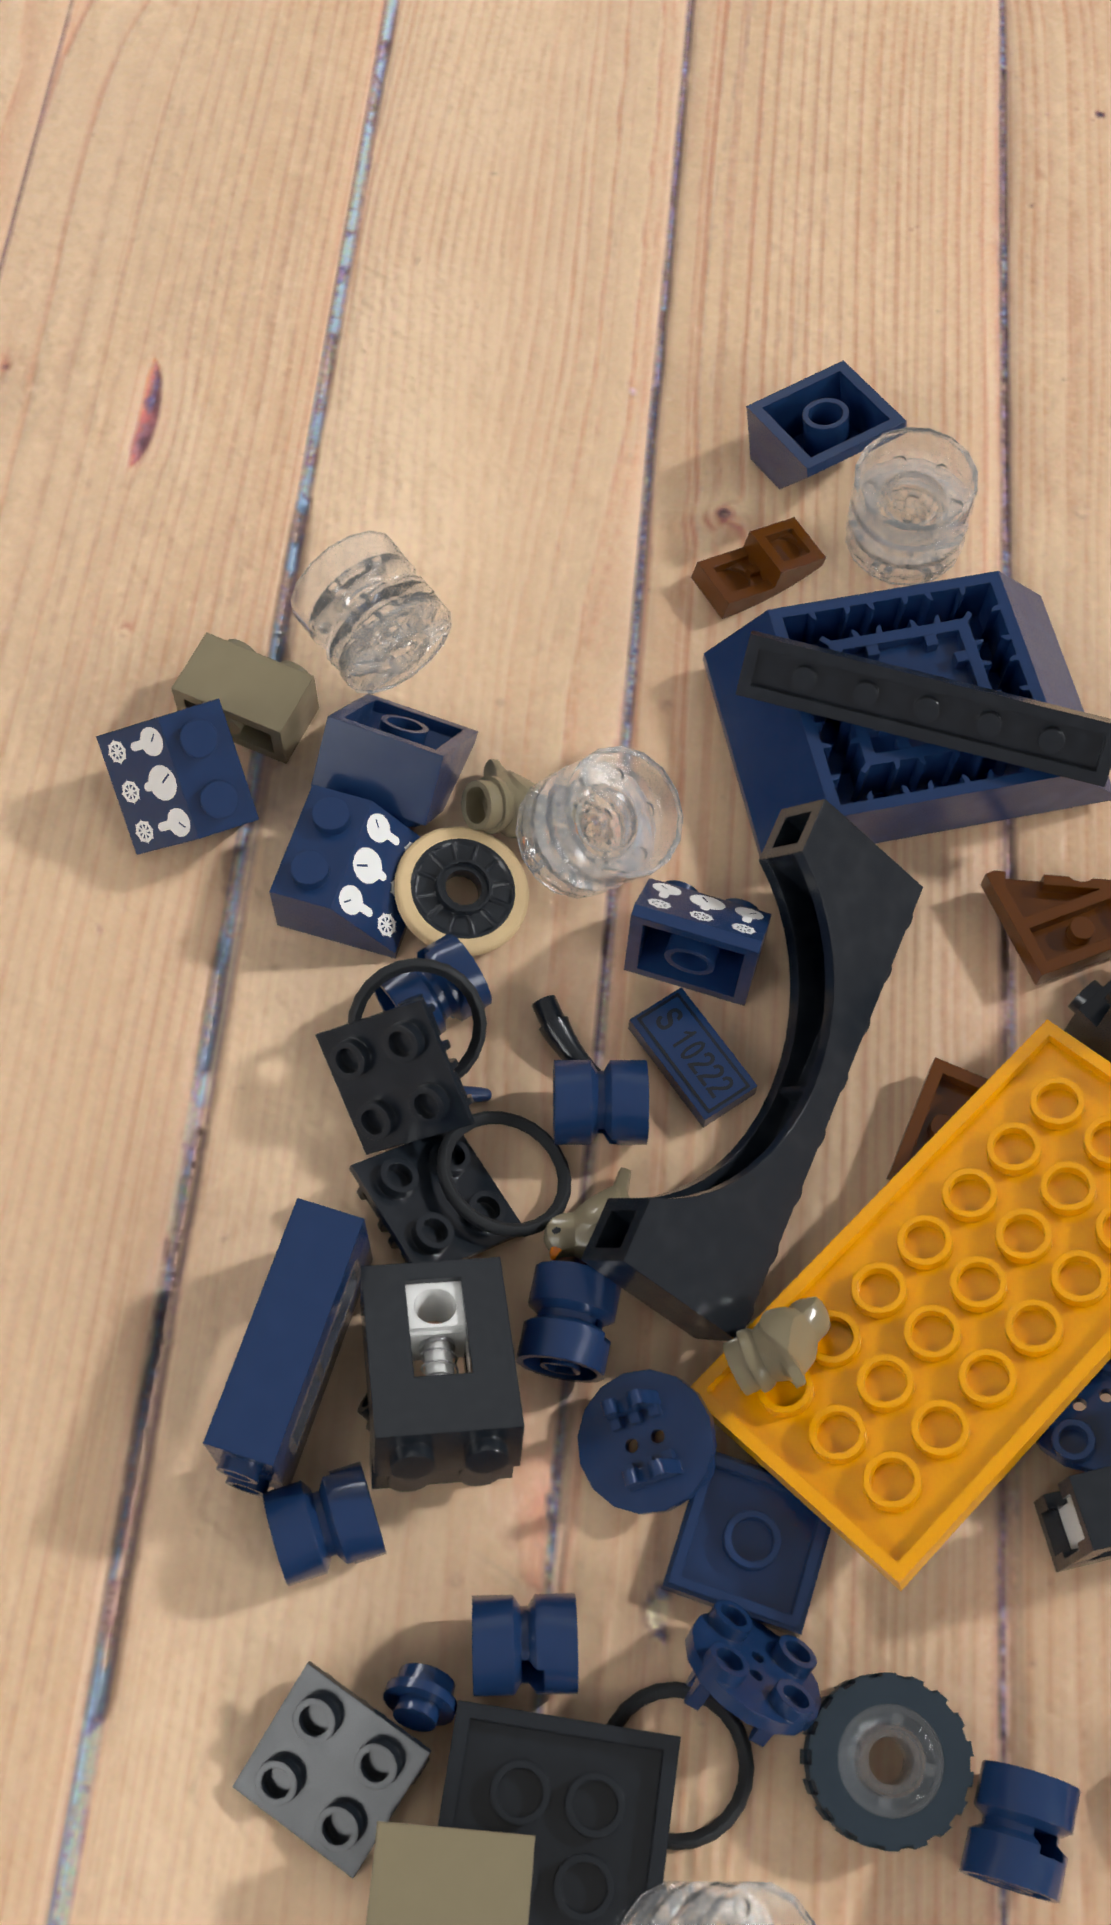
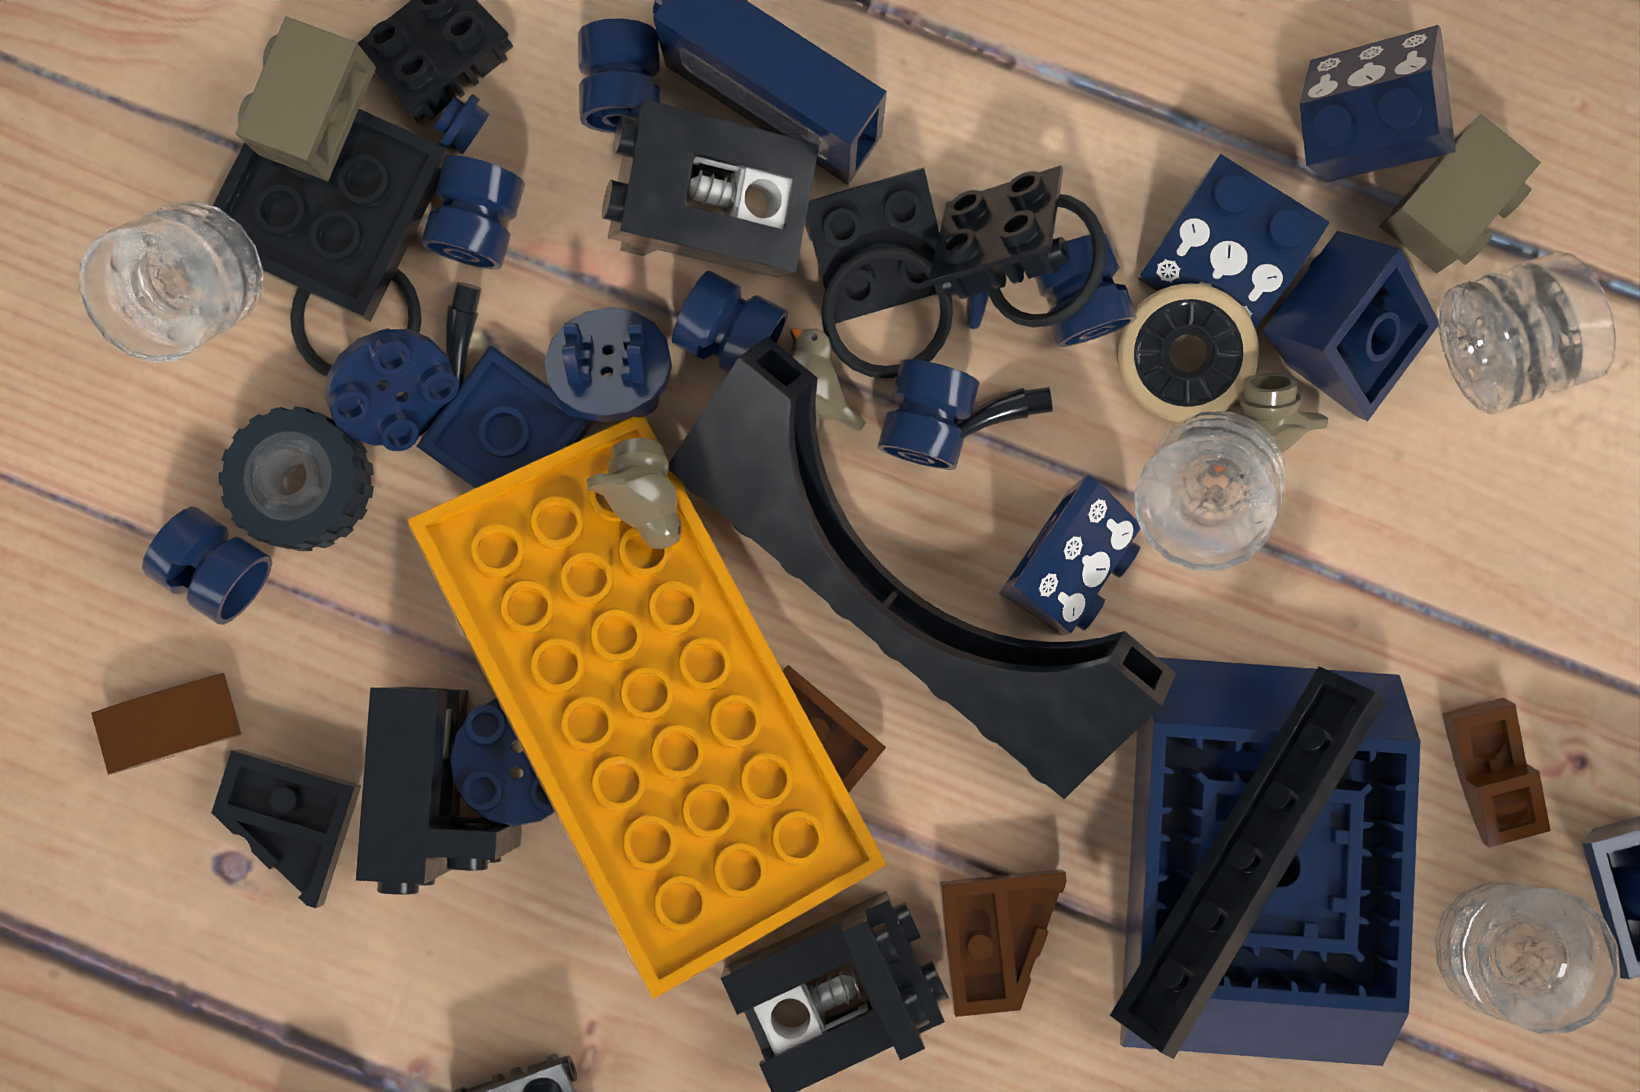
camera: 110 degrees right, 20 degrees up
(645, 1632) = (460, 326): none -> black helmet
(692, 1057) = (957, 522): dark blue tile -> none

